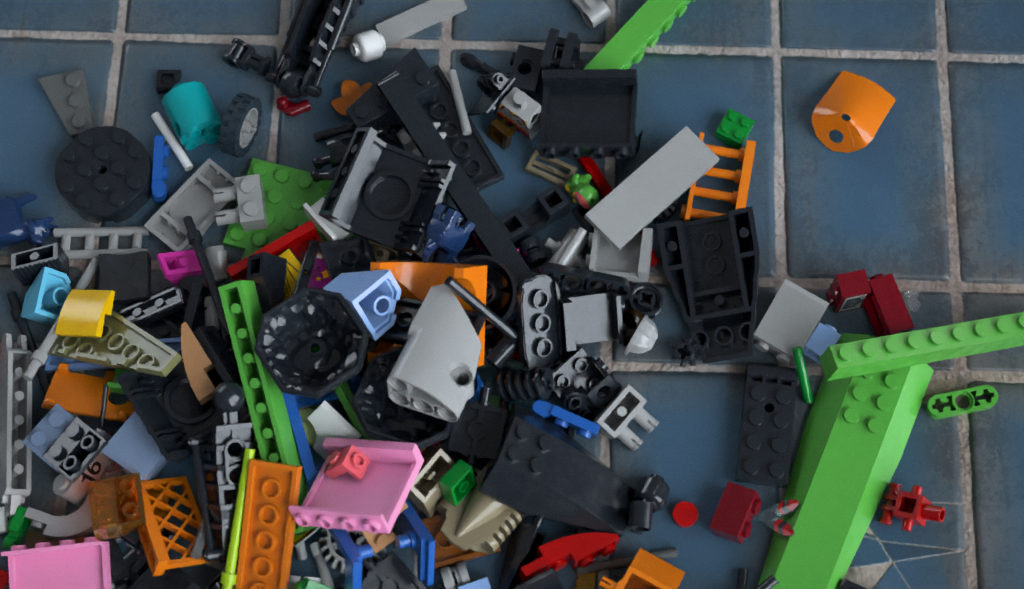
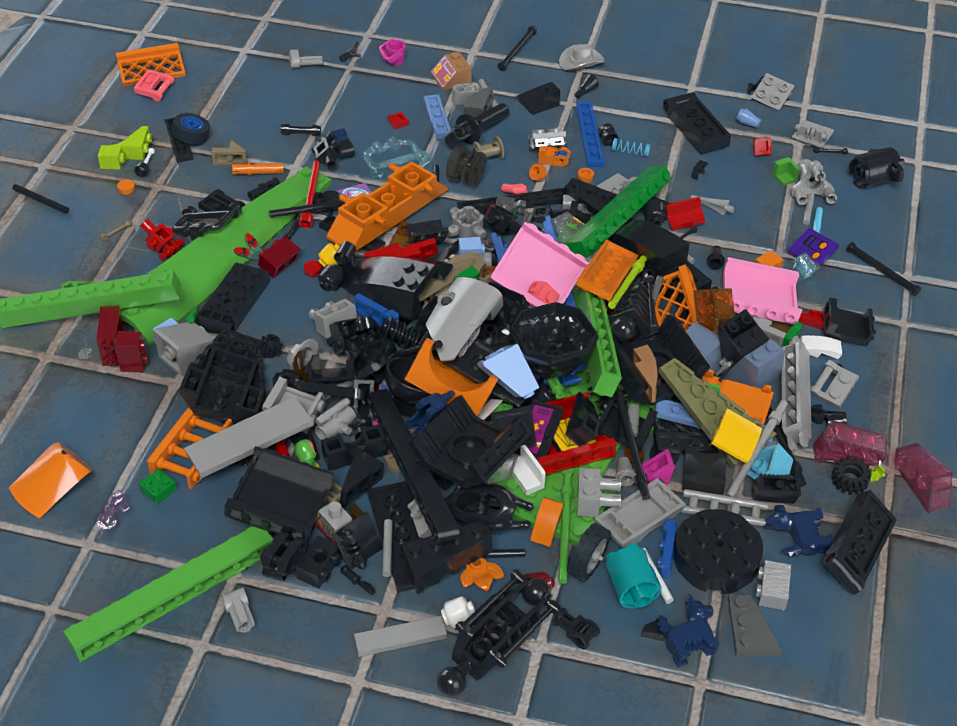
camera: 170 degrees left, 25 degrees down
(43, 149) = (774, 585): none -> light grey brick
(128, 73) = (690, 635): none -> dark blue animal
(277, 204) = (567, 495): none -> bright green bar
(293, 166) = (547, 521): none -> orange slope
(513, 183) = (362, 475): none -> black slope
(664, 530) = (327, 254): none -> yellow head
(767, 77) = (108, 518): none -> clear purple arm
(878, 523) = (190, 213): none -> black bar
(975, 545) = (104, 237): none -> dark tan hinge

